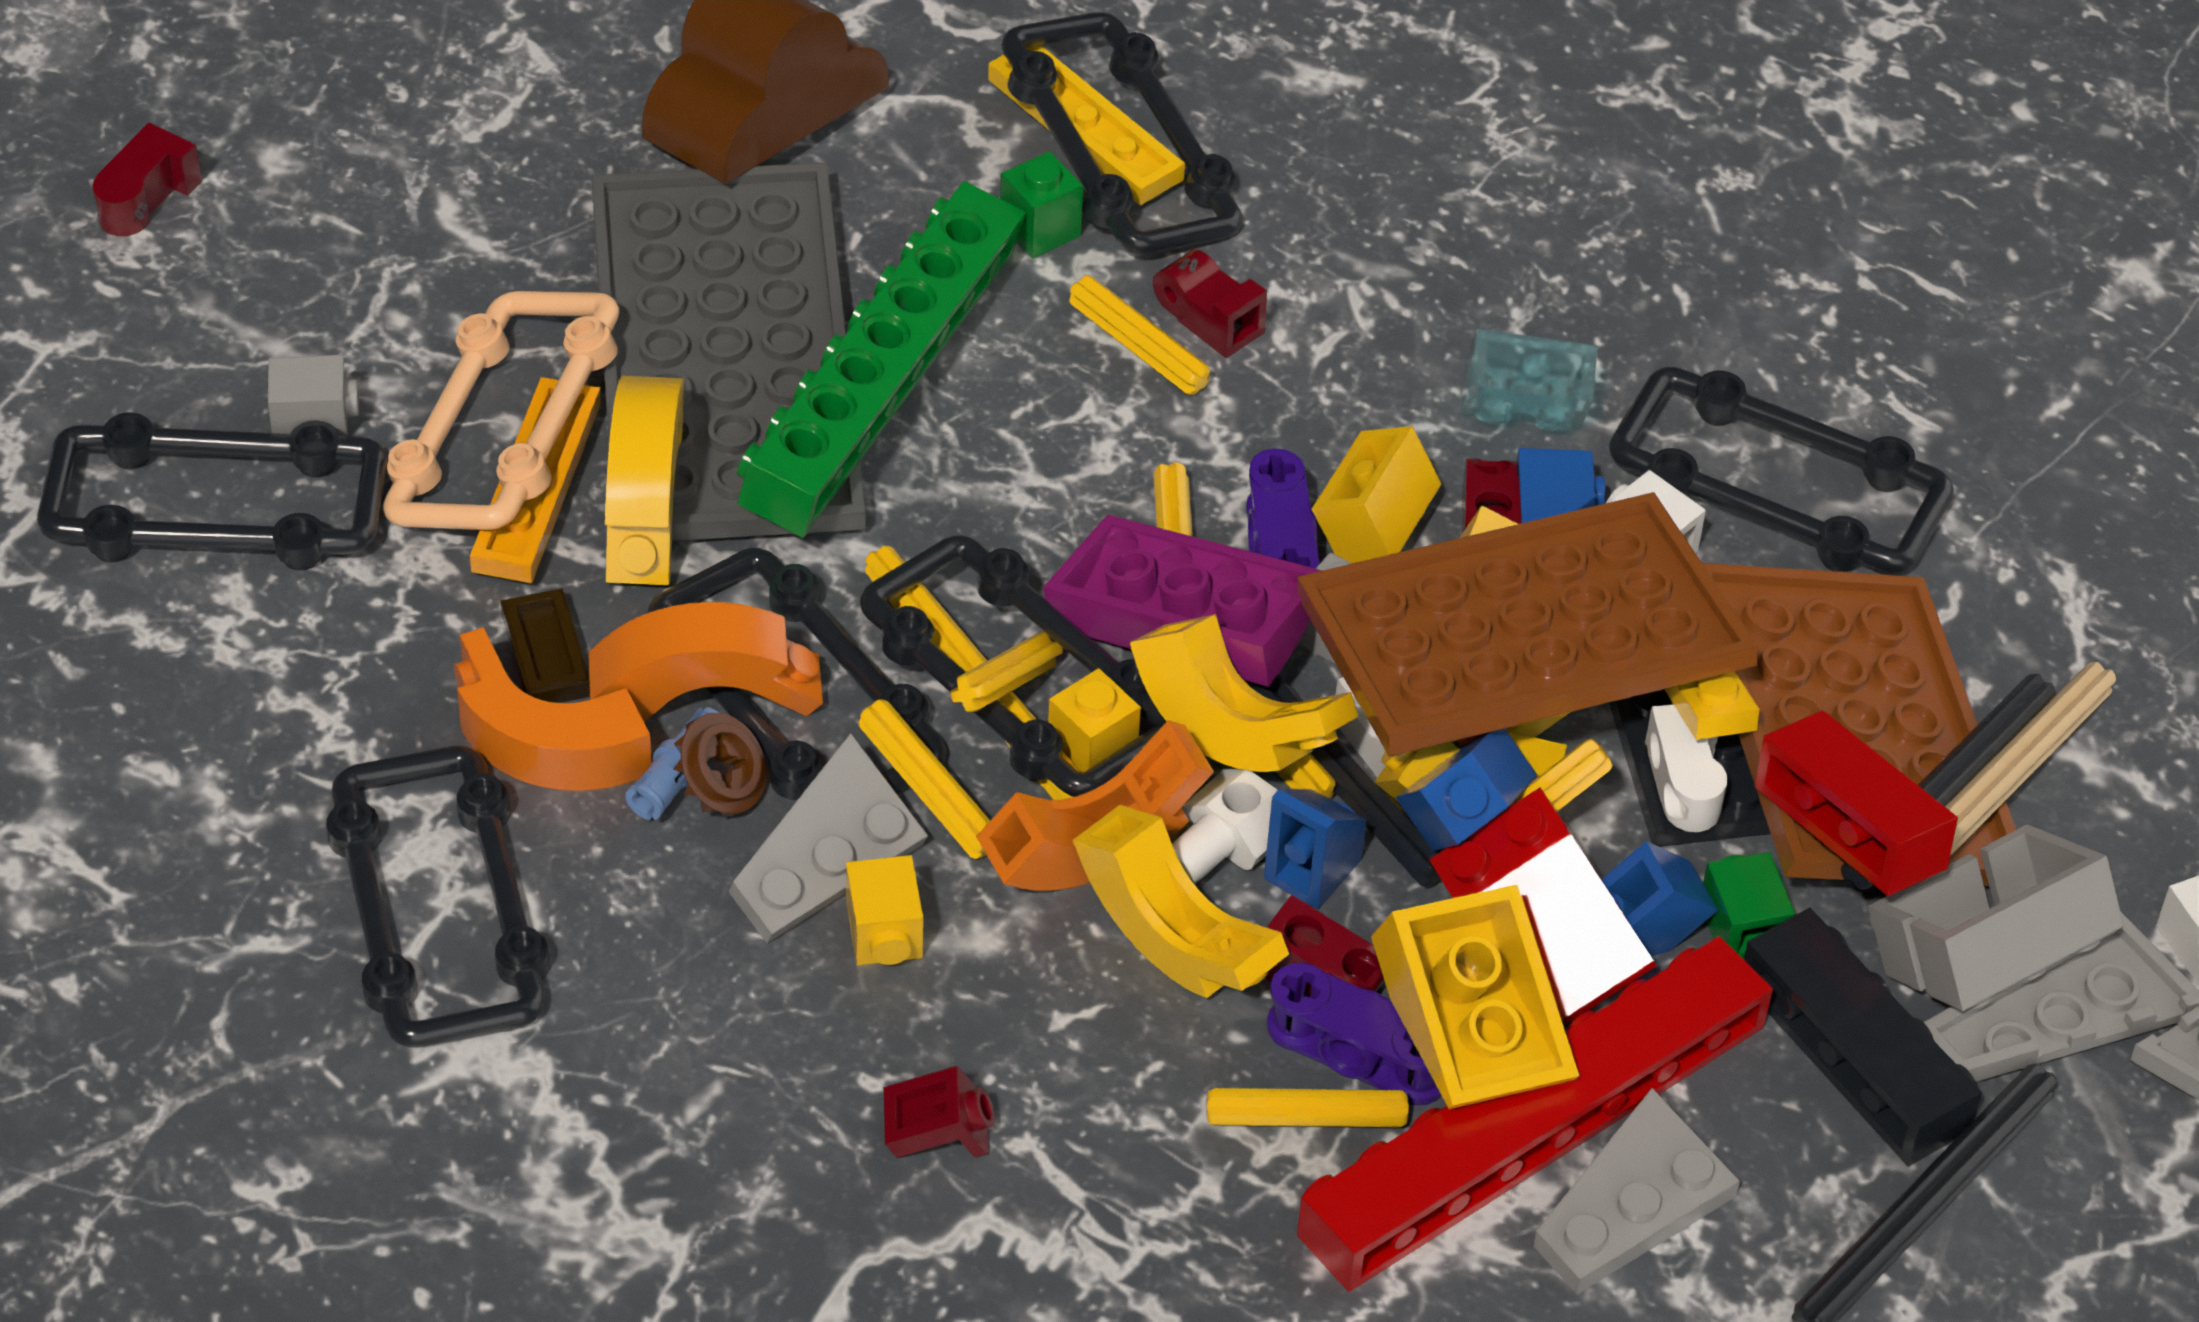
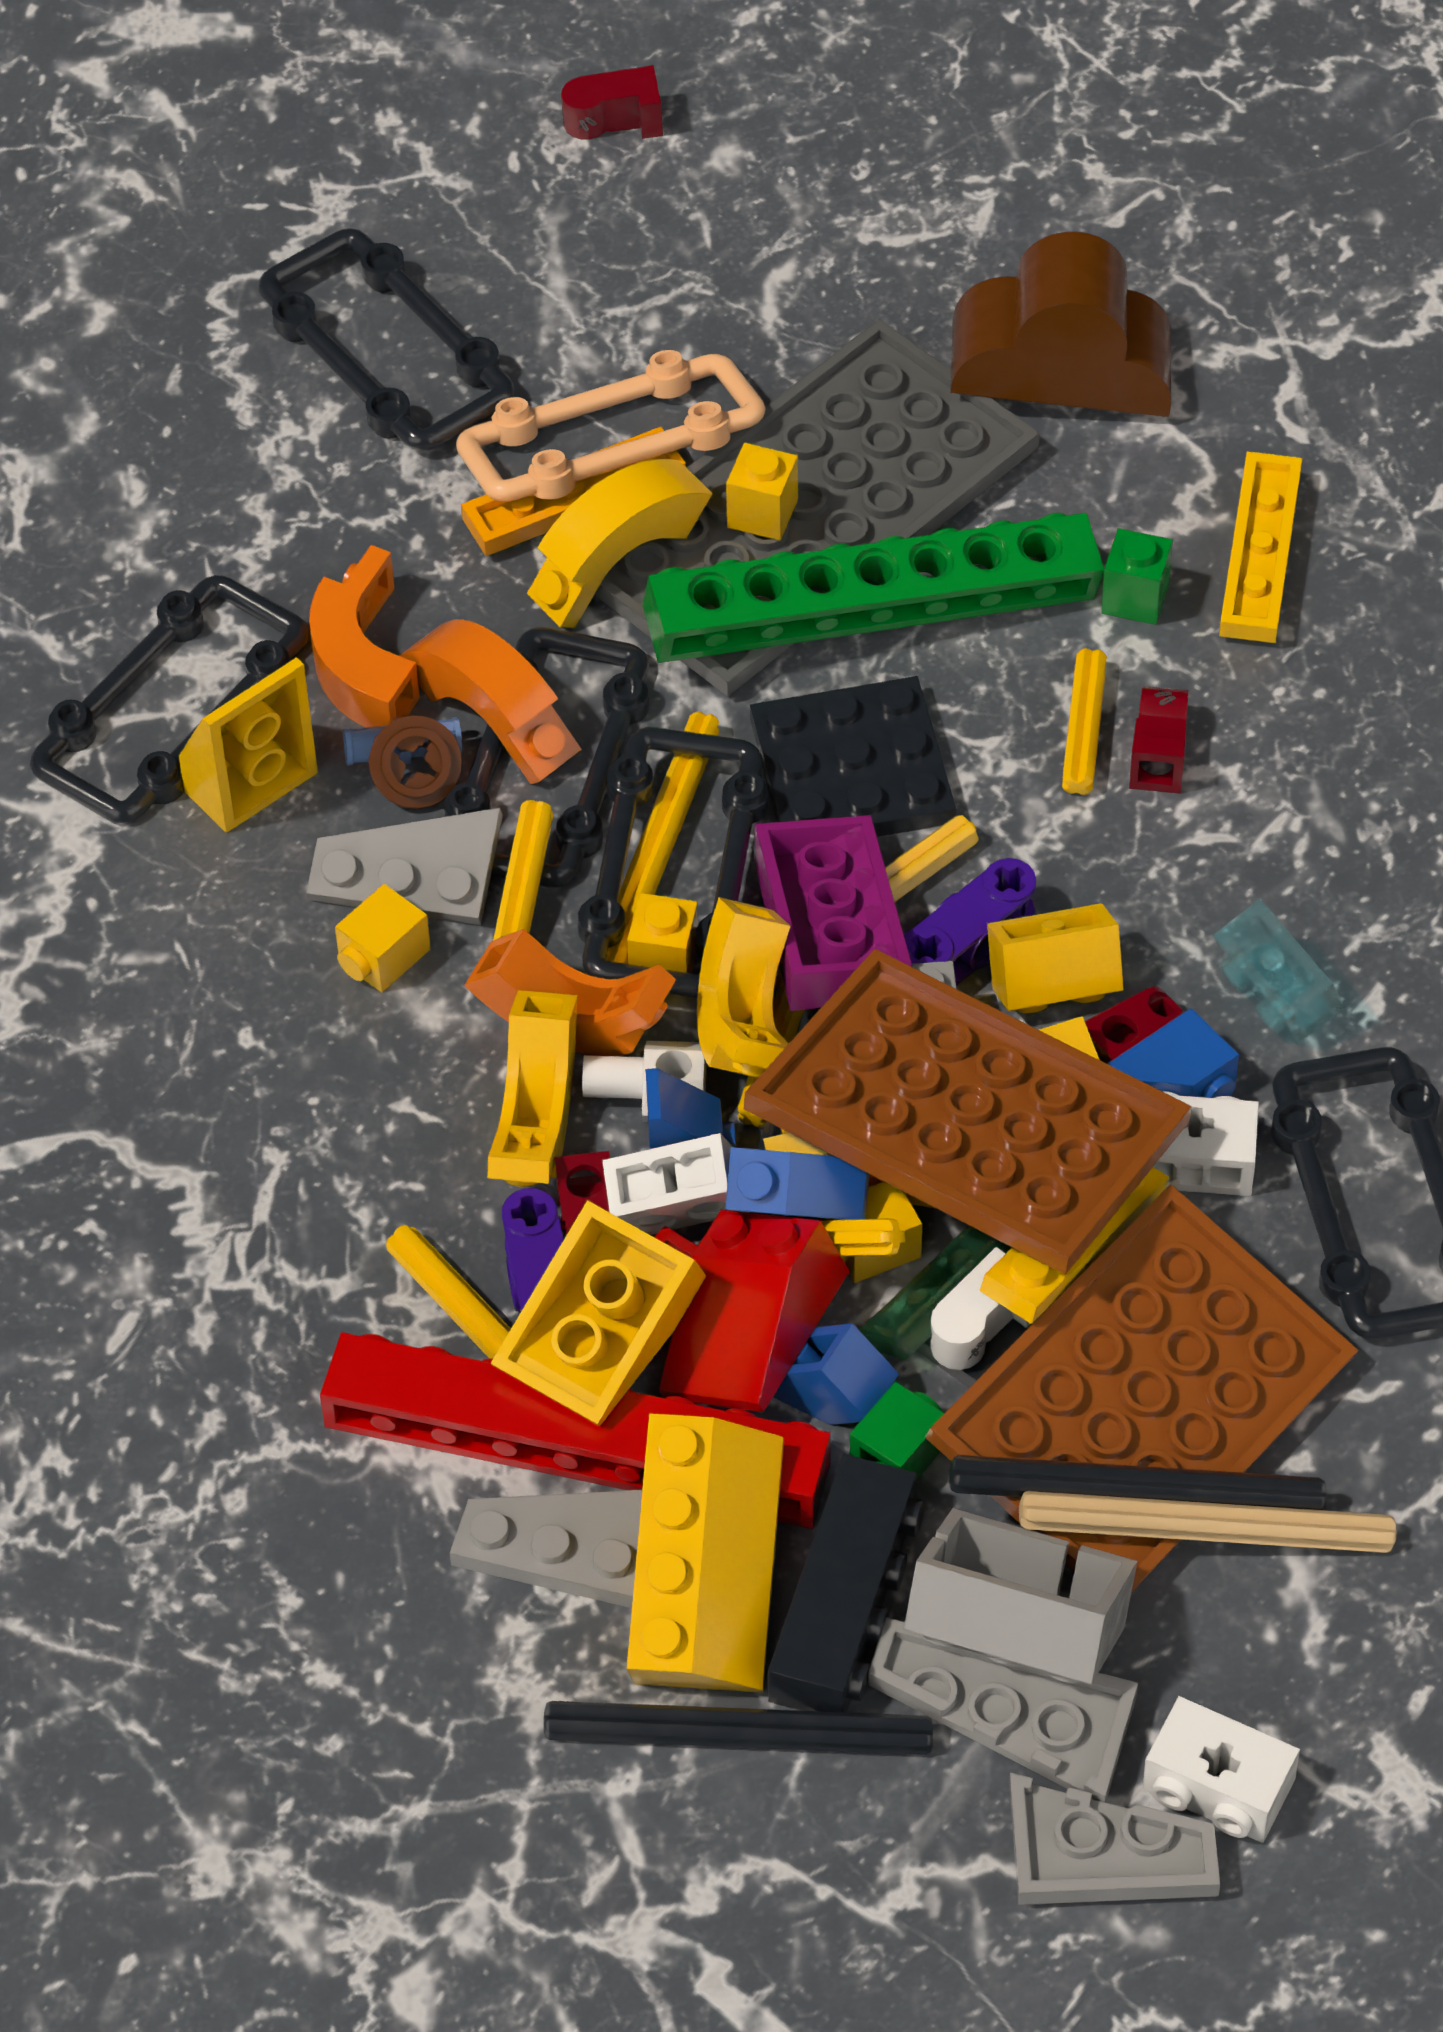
camera: 55 degrees right, 5 degrees up
(310, 391) = (515, 323): light grey brick -> none
(546, 646) = (441, 595): dark brown tile -> none
(588, 857) = (251, 749): none -> yellow slope
(711, 350) = (762, 491): none -> yellow brick
(937, 1112) = (241, 1088): dark red bracket -> none
(1006, 672) = (645, 854): yellow axle -> none
(1021, 490) = (855, 756): none -> black plate
(1109, 195) = (1287, 654): black bar -> none
(1375, 868) = (670, 1184): none -> white brick
(1627, 797) = (907, 1317): none -> clear green tile
(1760, 1100) = (705, 1555): none -> yellow slope
(1856, 802) = (999, 1423): red brick -> none

